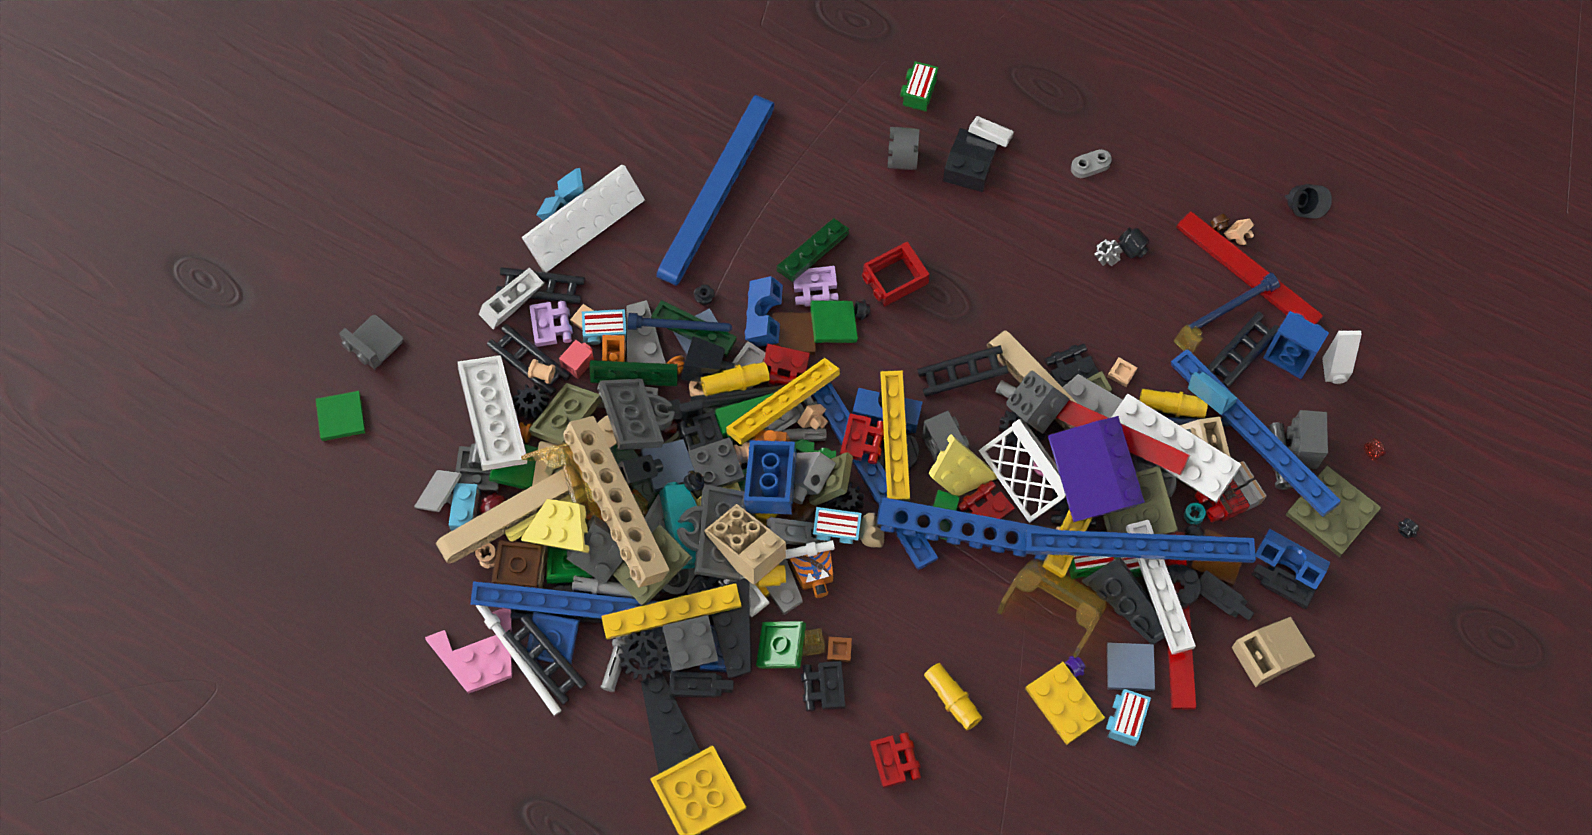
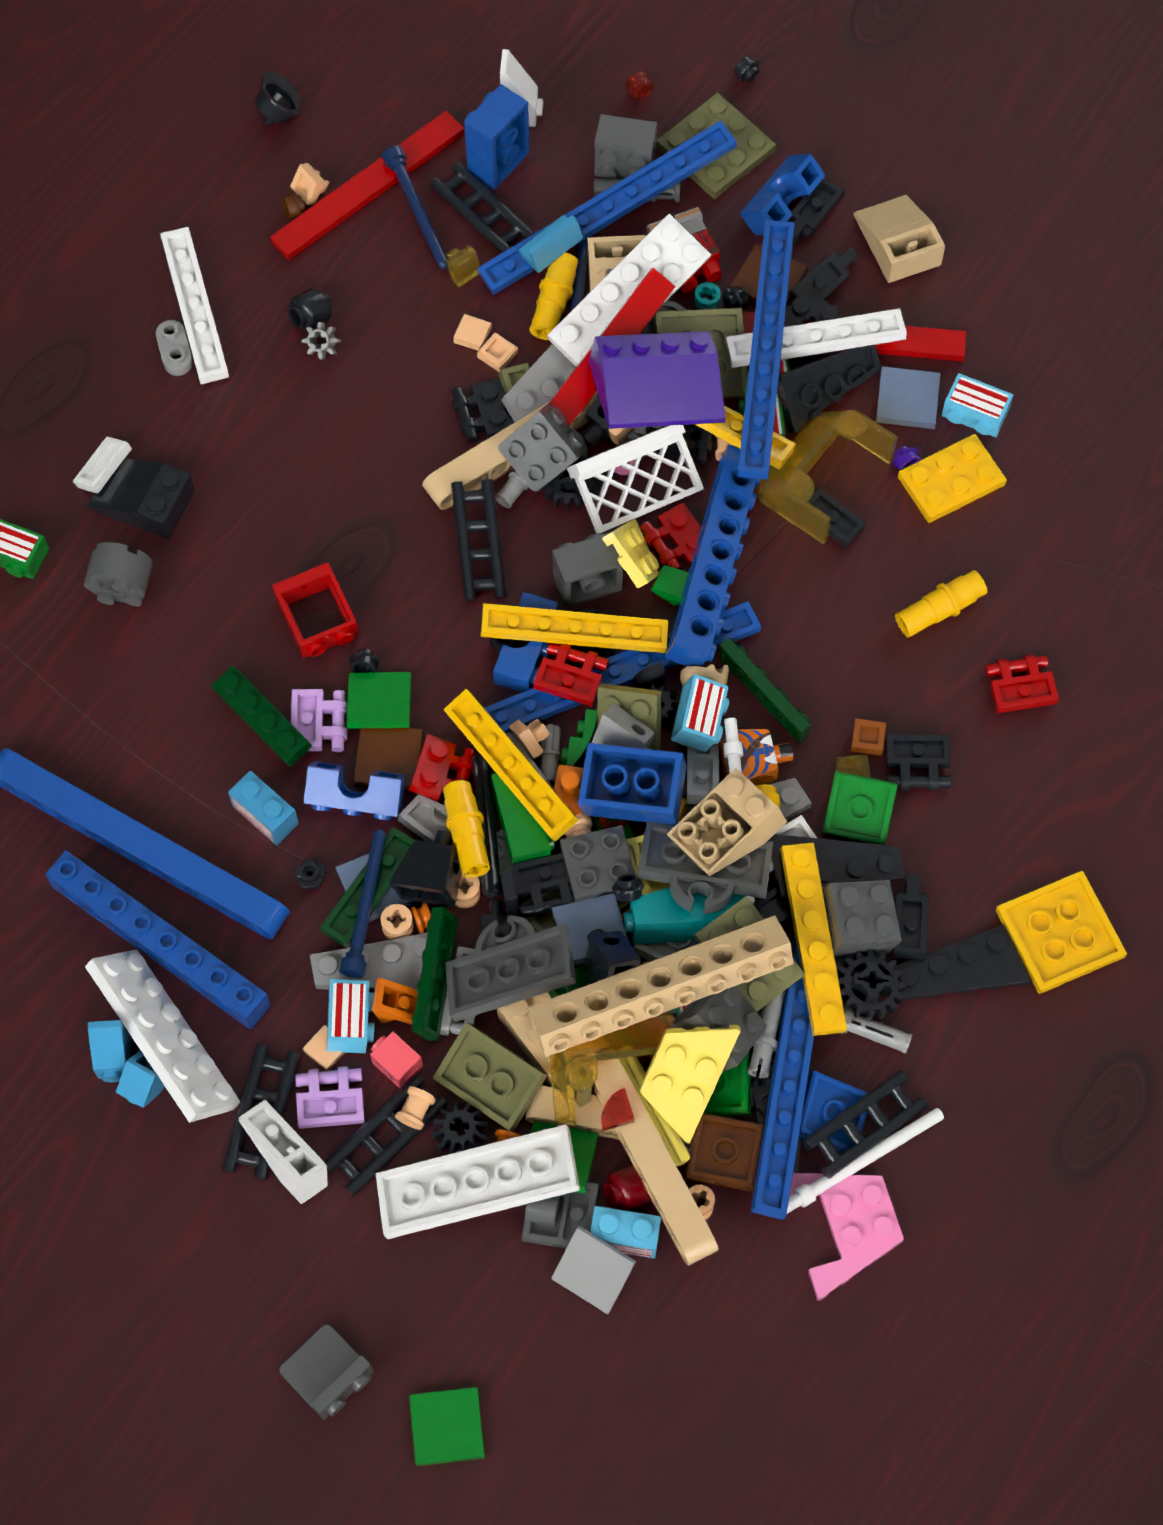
camera: 85 degrees left, 0 degrees up
(535, 487) = (617, 1111): none -> clear red tile
(649, 209) = (158, 940): none -> blue brick
(672, 343) = (398, 928): none -> light nougat wheel
(746, 259) = (263, 807): none -> dark azure brick
(862, 579) = (758, 684): none -> dark green plate
(869, 495) = (653, 674): none -> black tile
(1017, 612) = (844, 524): none -> black hinge
(1126, 170) = (194, 305): none -> white plate
(1135, 353) = (472, 332): none -> light nougat tile

